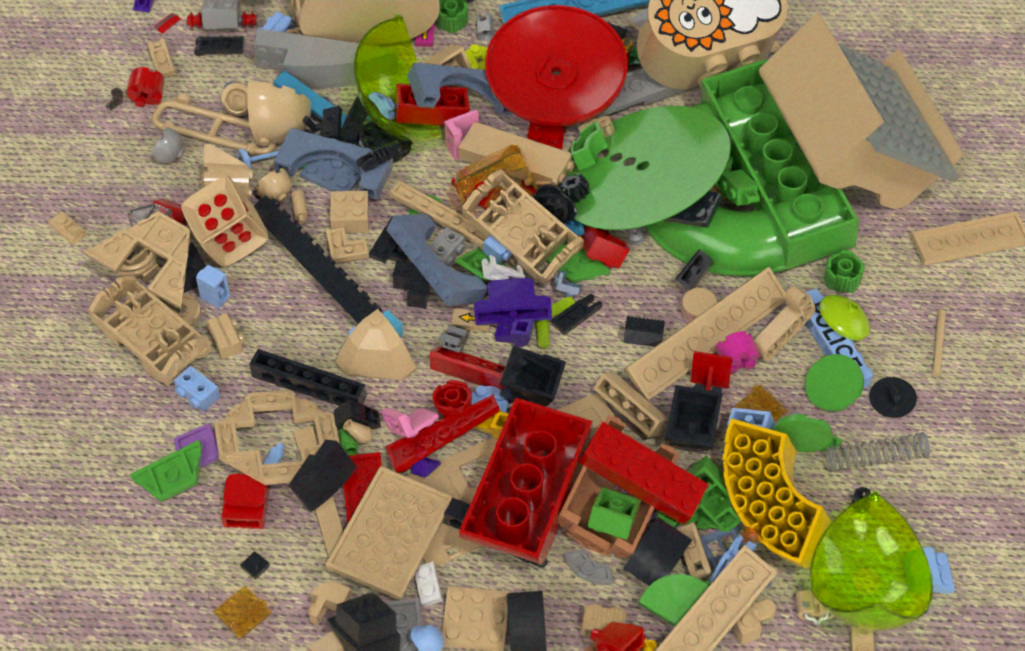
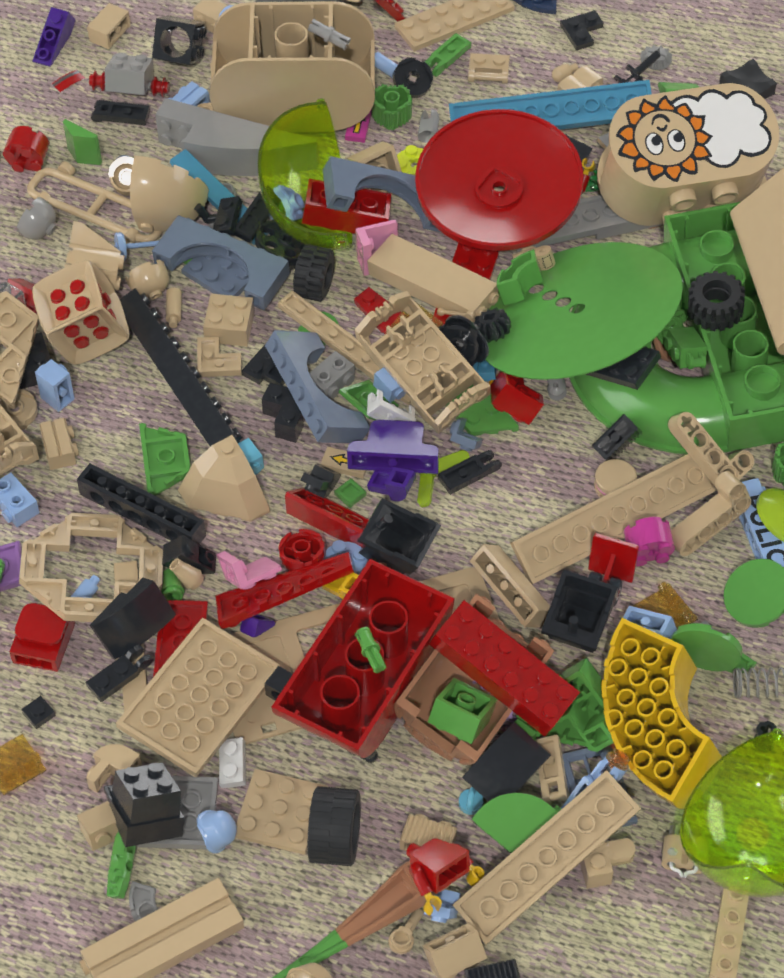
camera: 10 degrees right, 0 degrees up
(161, 57) = (52, 119): tan plate -> none
(193, 76) = (82, 144): none -> bright green slope
(317, 523) = (118, 673): none -> black hinge
(318, 336) = (164, 458): none -> bright green wing
(379, 155) = (271, 259): black hinge -> none
(415, 162) = (314, 272): none -> black tyre
(480, 345) = (350, 493): none -> bright green tile
(508, 157) = (421, 280): clear yellow windscreen -> none
(532, 473) = (370, 649): none -> bright green axle
(587, 568) = (423, 772): light grey tile -> none
(632, 587) = (470, 801): none -> medium azure tile
(643, 331) = (543, 502): black brick -> none
(753, 253) = (706, 447): none -> tan beam
(759, 157) = (719, 287): none -> black tyre

